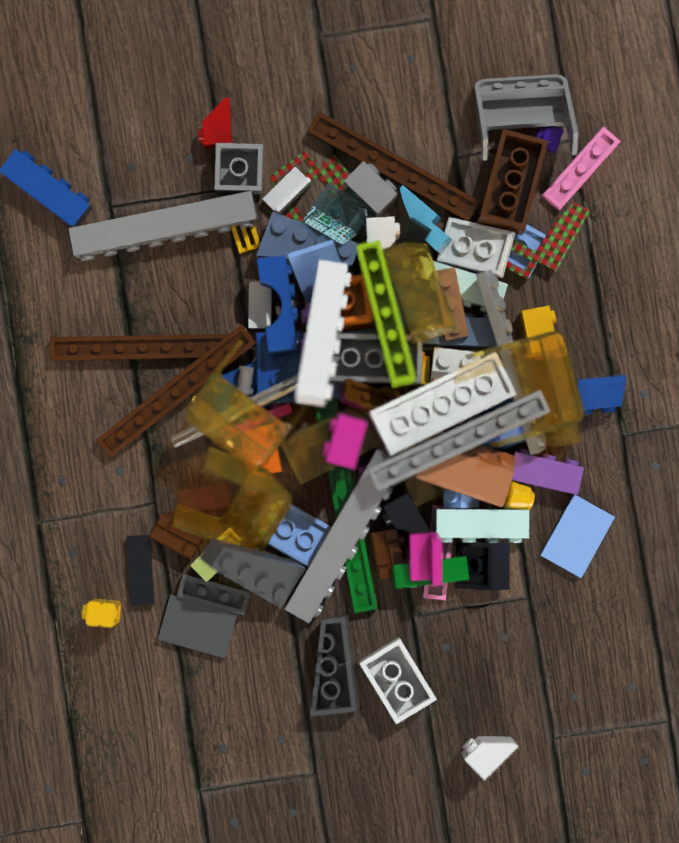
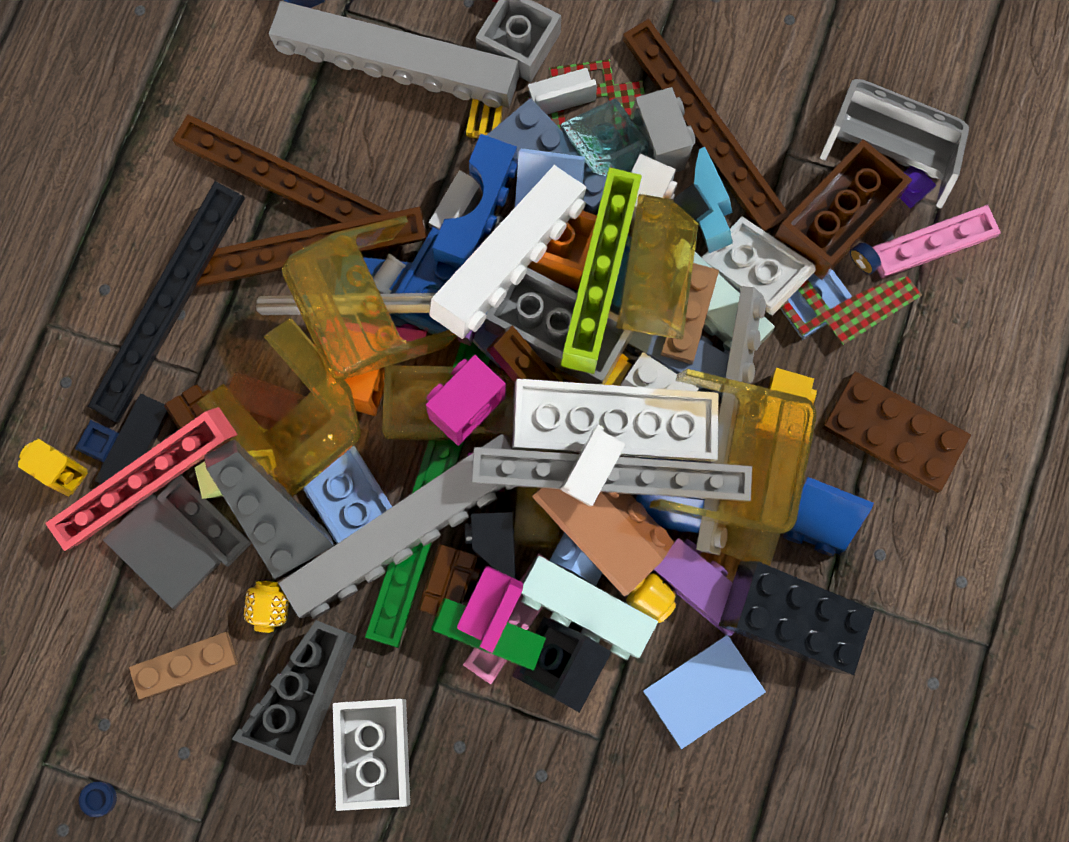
camera: 30 degrees right, 10 degrees down
(110, 469) = (166, 302): none -> black tile
(117, 580) = (97, 441): none -> dark blue tile
(165, 591) = (141, 478): none -> coral brick
(245, 793) = (97, 799): none -> dark blue tile
(251, 688) = (183, 665): none -> medium nougat plate
(283, 626) = (266, 606): none -> yellow head
(445, 443) = (593, 466): none -> white panel
(542, 205) = (865, 258): none -> dark blue tile
(612, 464) = (796, 617): none -> black brick
(616, 309) = (897, 431): none -> reddish brown plate

